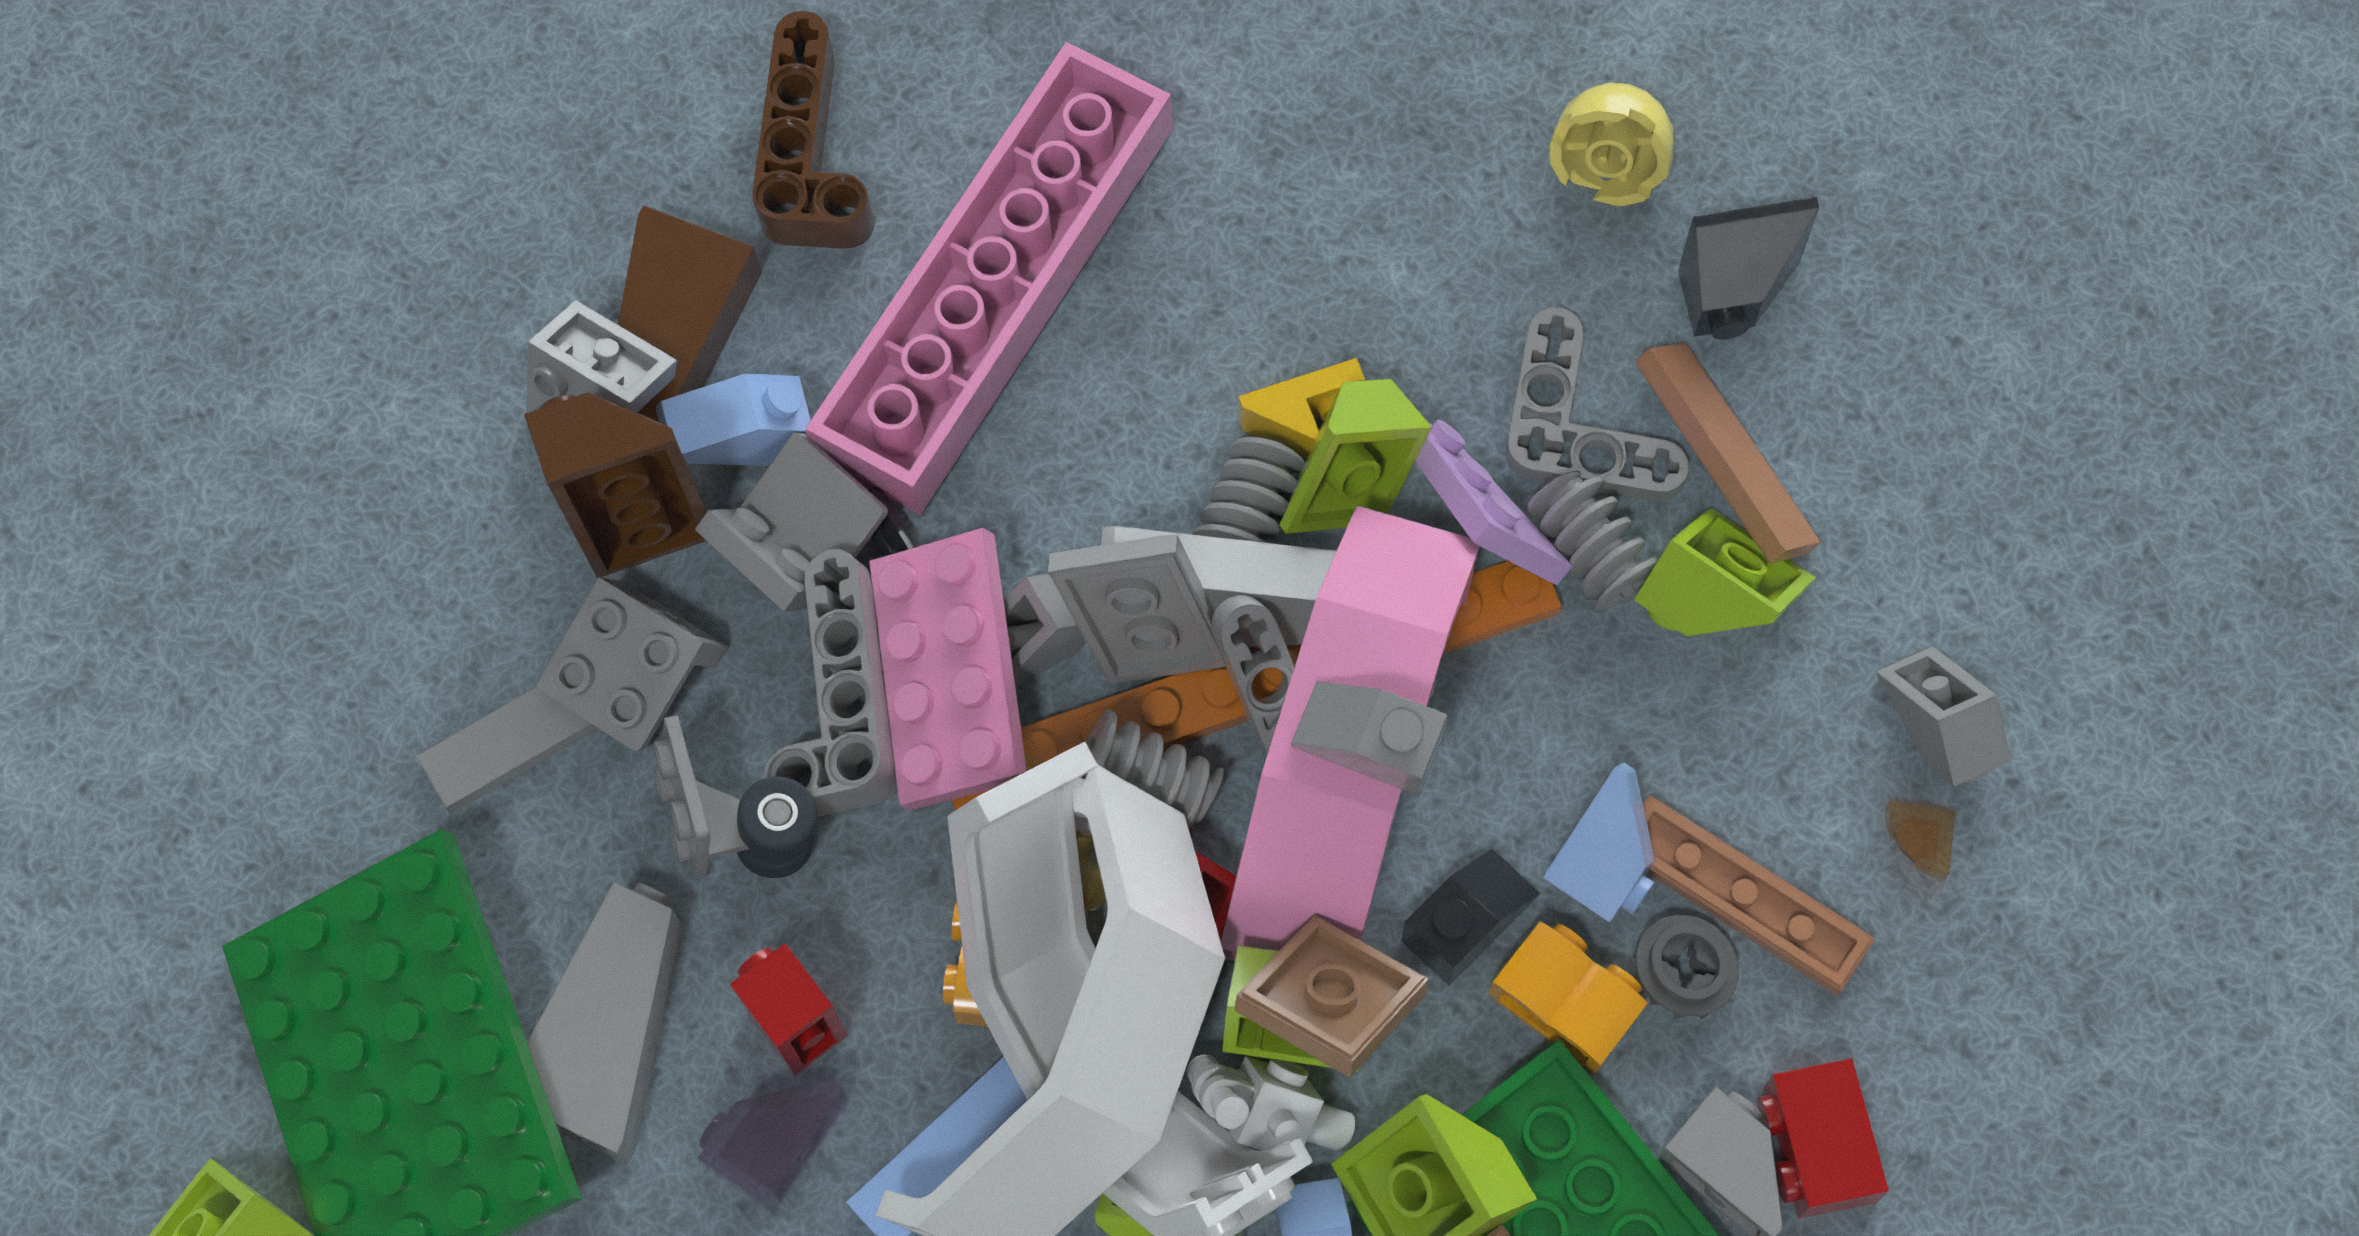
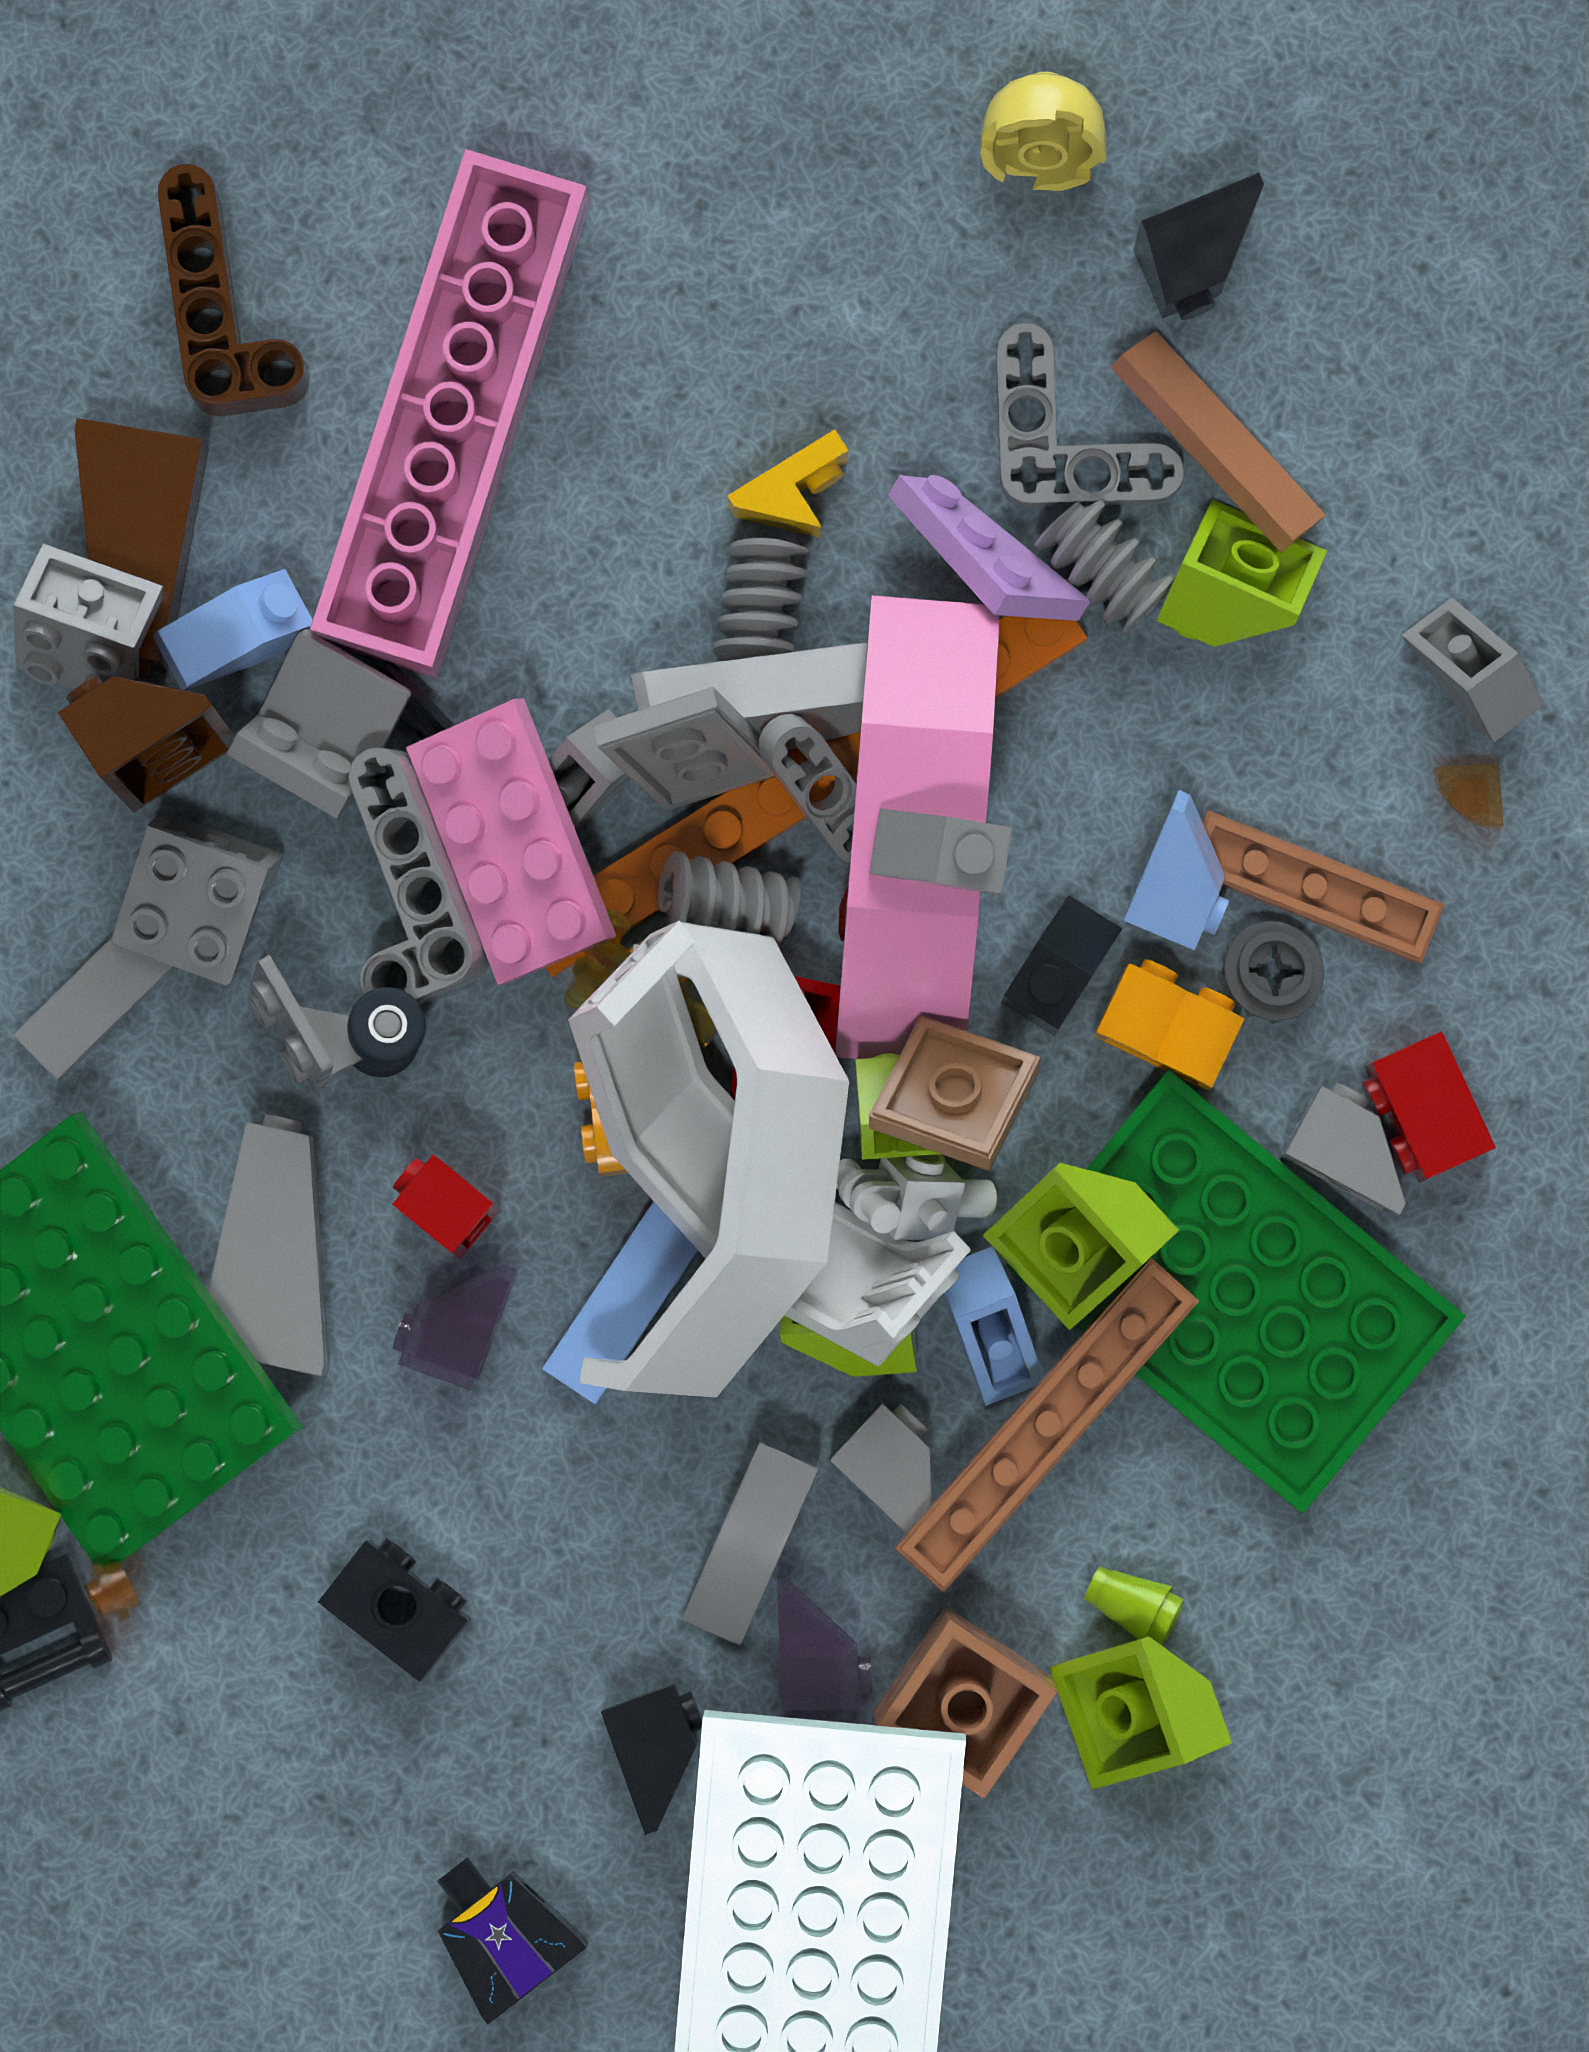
camera: 15 degrees left, 15 degrees up
(1357, 457) = (858, 536): lime slope -> none

